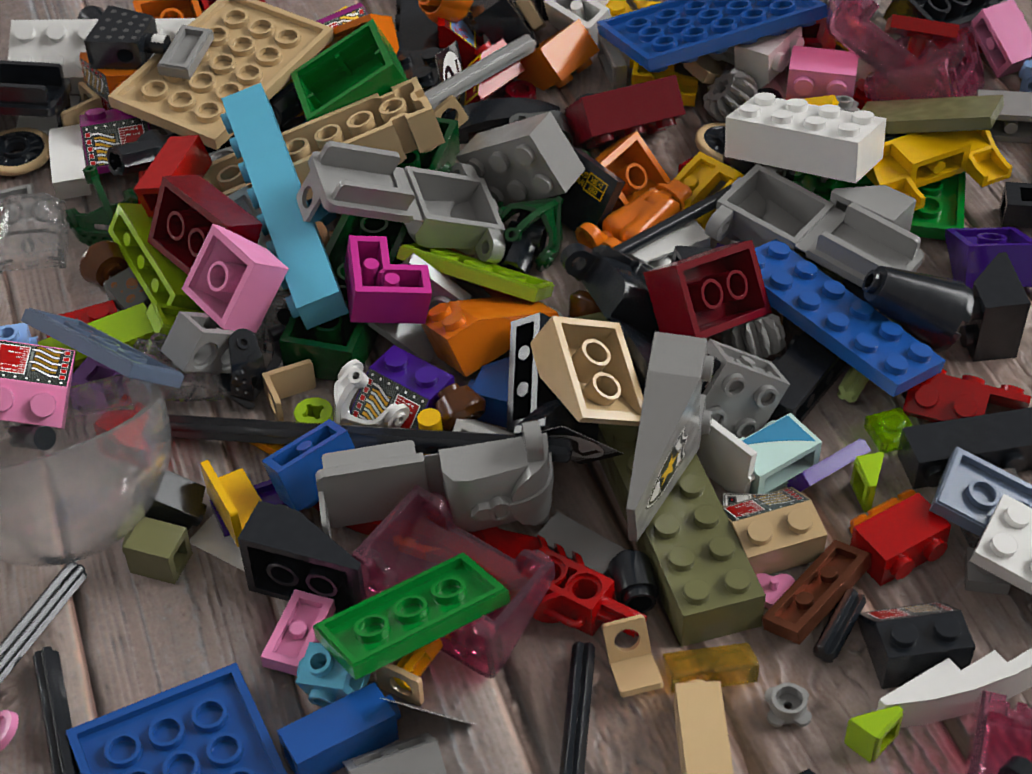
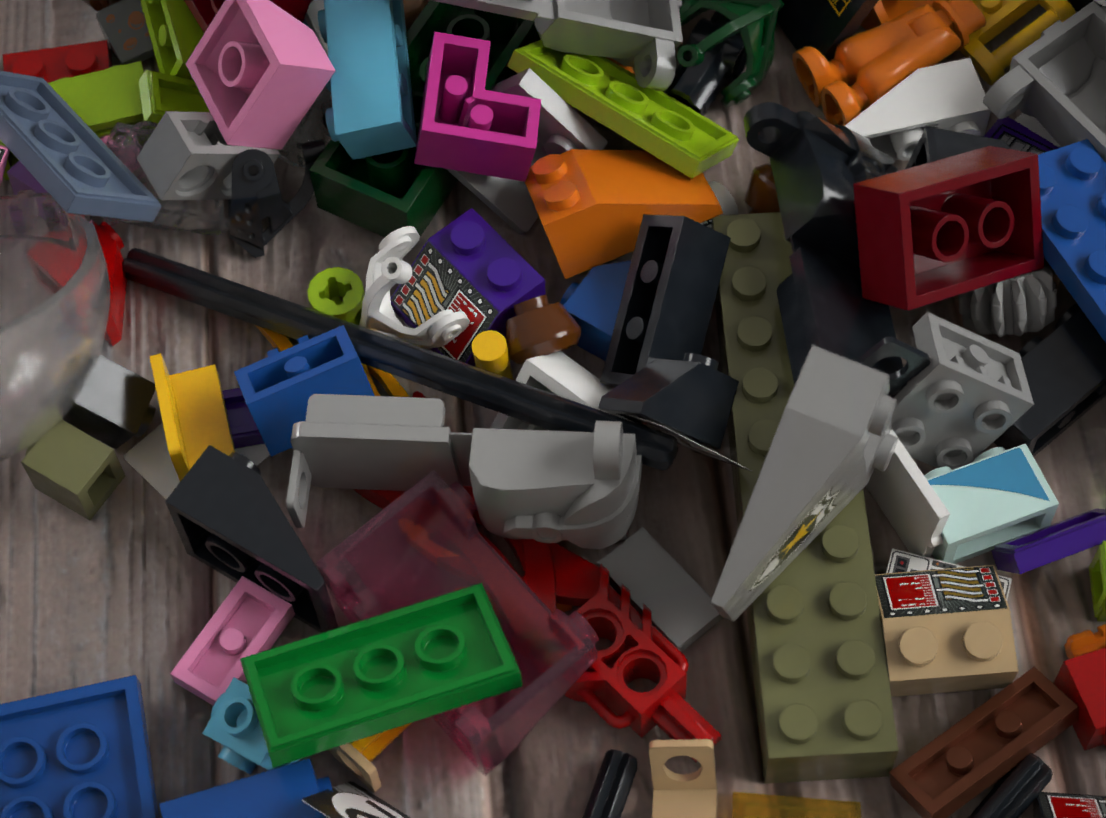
camera: 15 degrees right, 15 degrees up
(287, 382) = (311, 229): tan bracket -> none
(589, 370) = (730, 335): tan slope -> none
(633, 580) = (720, 669): black brick -> none
(670, 224) = (929, 78): black piece -> none
(774, 586) = (921, 721): bright pink piece -> none

